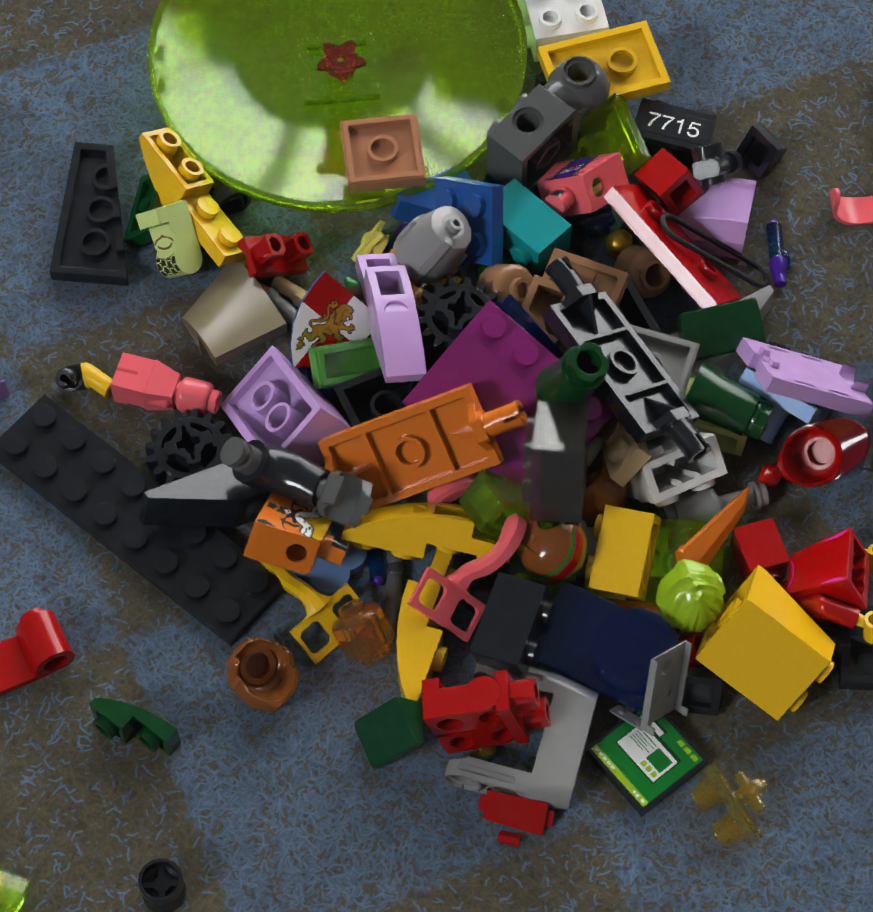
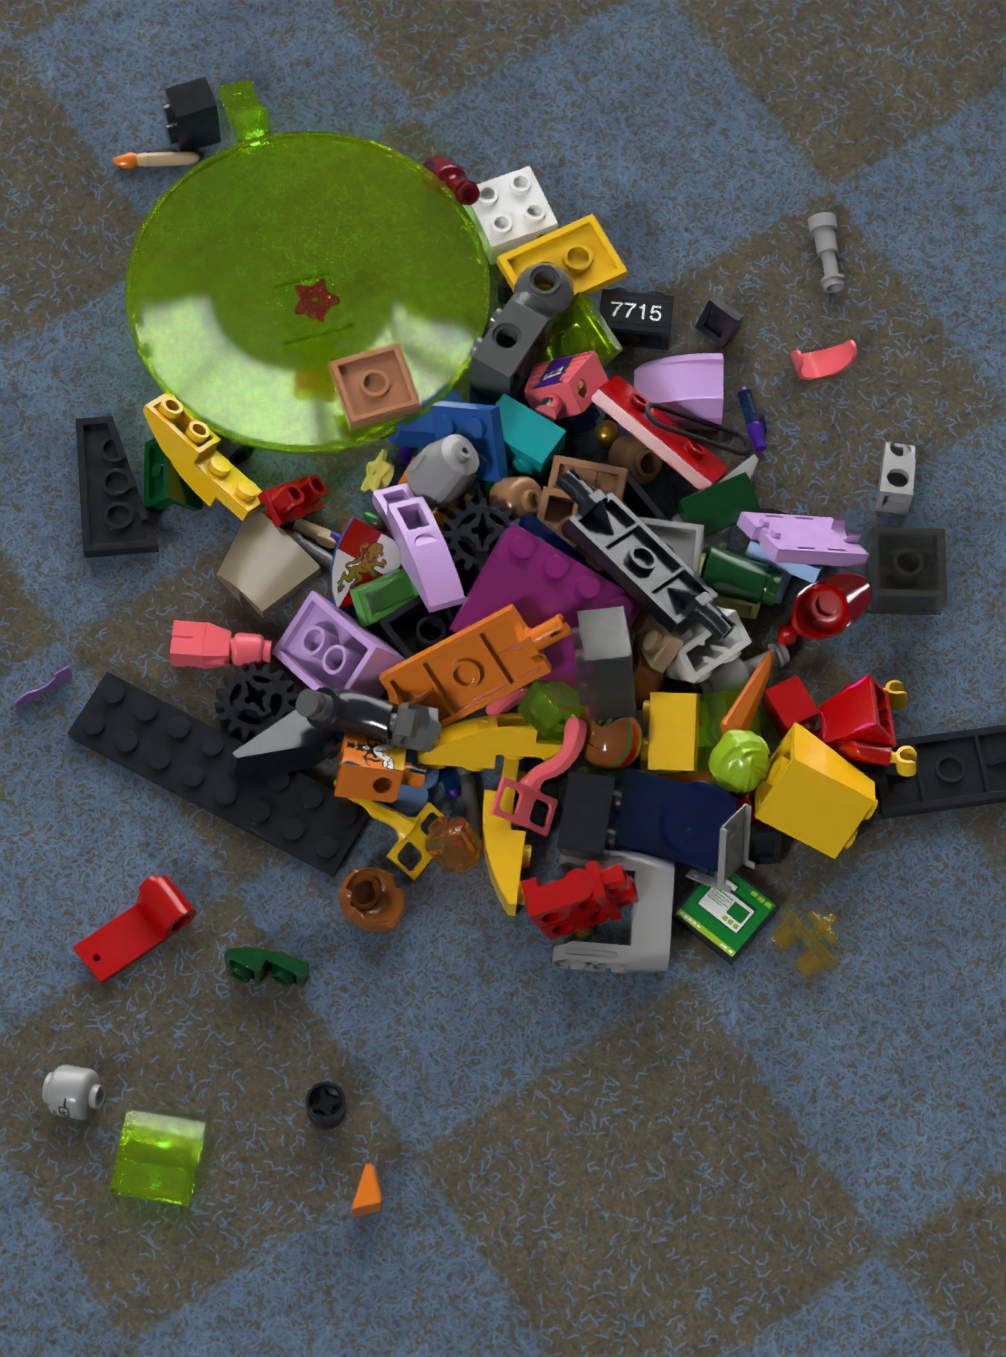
camera: 15 degrees left, 5 degrees up
(82, 377) = (141, 647): arm -> none
(173, 238) = (193, 500): yellowish green leg -> none
(391, 730) = (499, 931): dark green slope -> none
(517, 813) = (621, 982): red piece -> none
(573, 375) = (604, 584): dark green plant -> none
(669, 182) = (643, 370): red brick -> none
(712, 163) = (681, 345): black plate -> none

